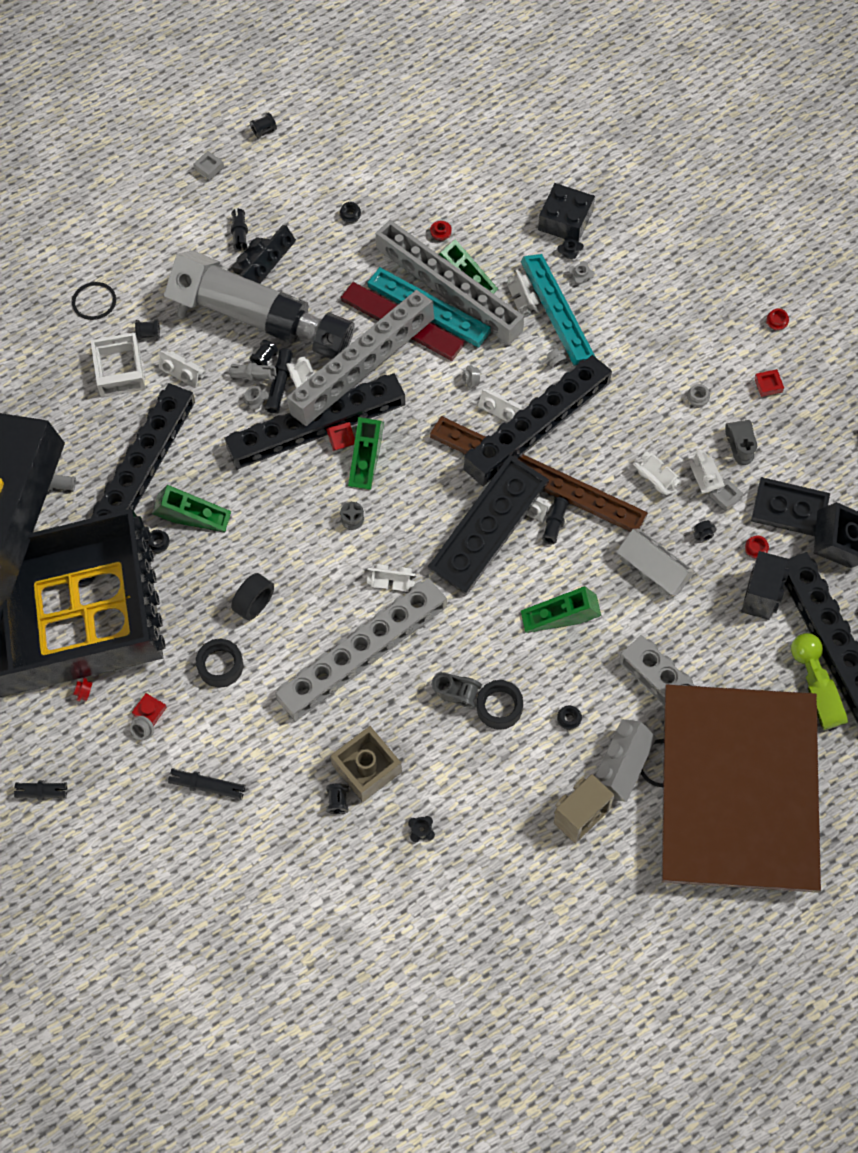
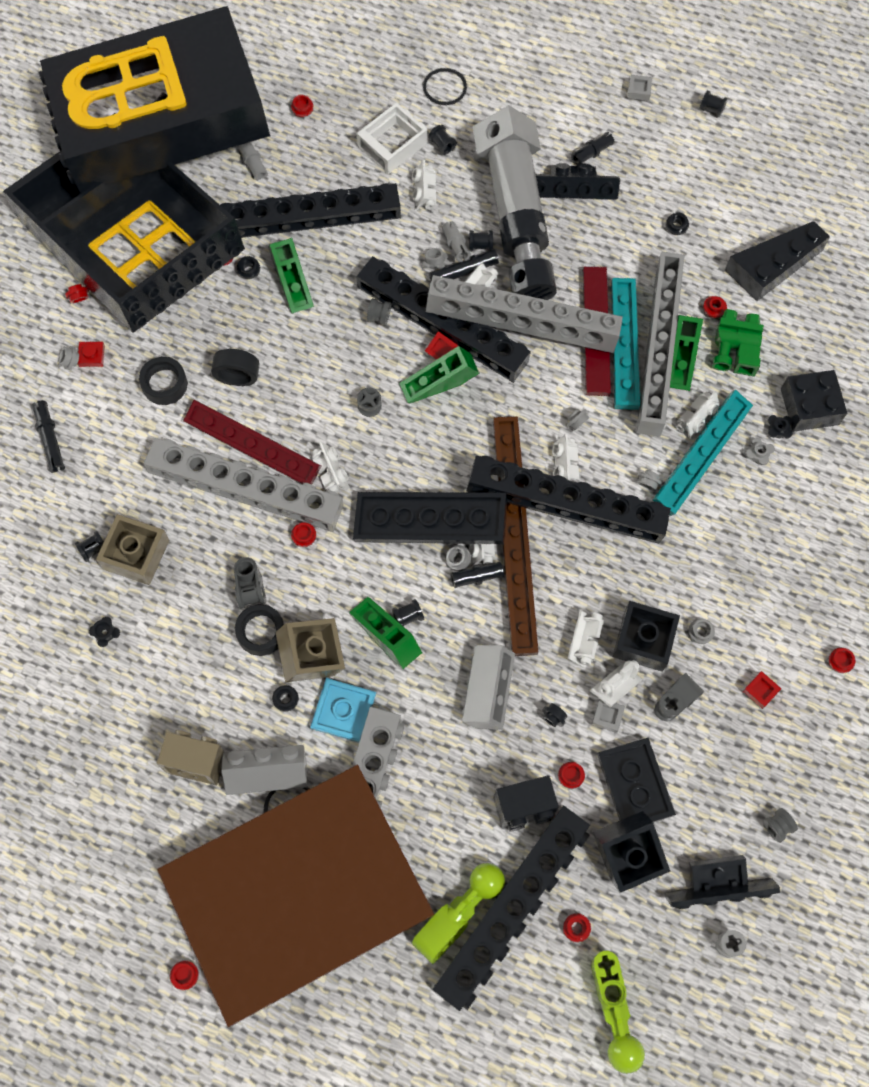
camera: 55 degrees right, 5 degrees up
(30, 411) = (302, 106): none -> red plate
(275, 463) = (378, 312): none -> dark grey wheel
(326, 624) = (252, 443): none -> dark red tile
(433, 171) = (773, 261): none -> black wedge
(436, 629) = (303, 534): none -> red plate
(482, 226) = (742, 336): none -> green hips
(528, 519) = (452, 555): none -> light grey plate
(545, 671) = (310, 650): none -> dark tan brick
(556, 585) = (408, 613): none -> black bush
(606, 680) = (342, 710): none -> medium azure tile
(682, 431) = (646, 636): none -> black brick
(753, 913) = (184, 975): none -> red plate

